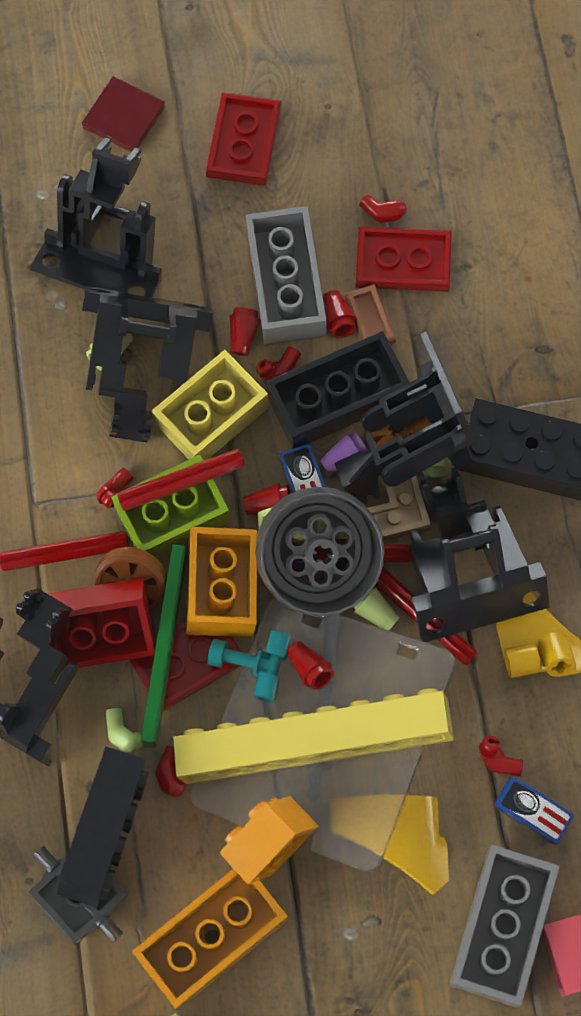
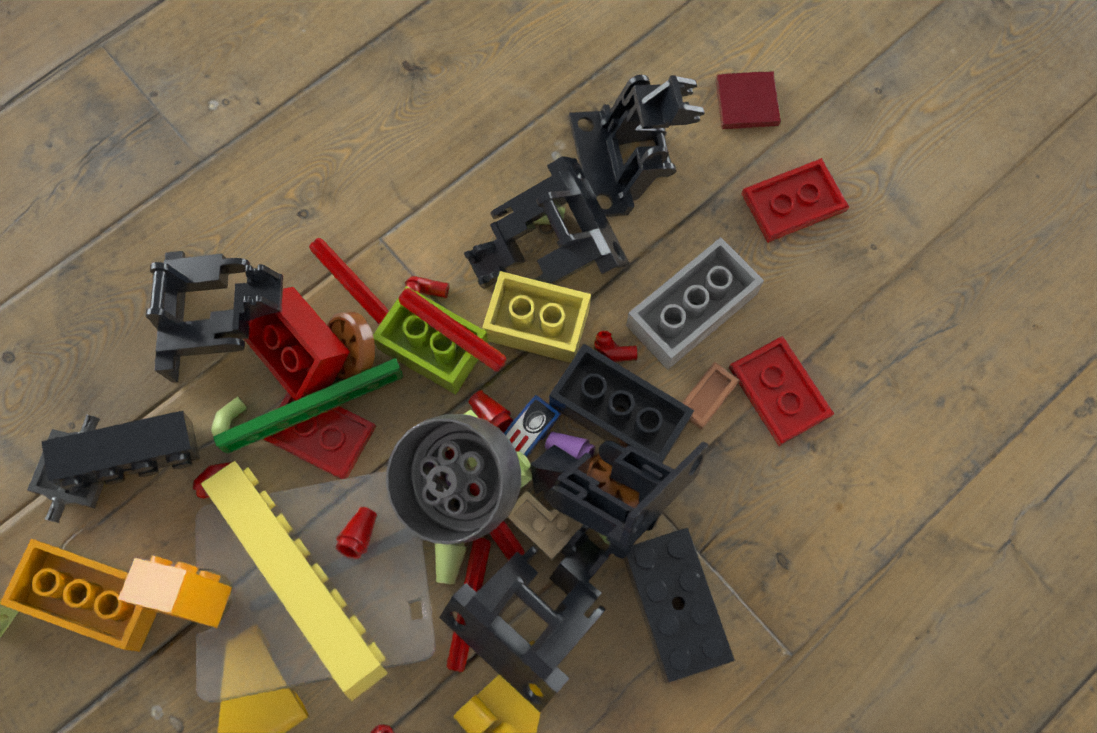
camera: 55 degrees right, 0 degrees up
(221, 582) = (384, 413): light orange brick -> none
(243, 329) = (623, 300): red cone -> none
(264, 665) = (340, 495): teal bar -> none
(339, 317) = (690, 368): red cone -> none
(384, 211) = (811, 348): red arm -> none

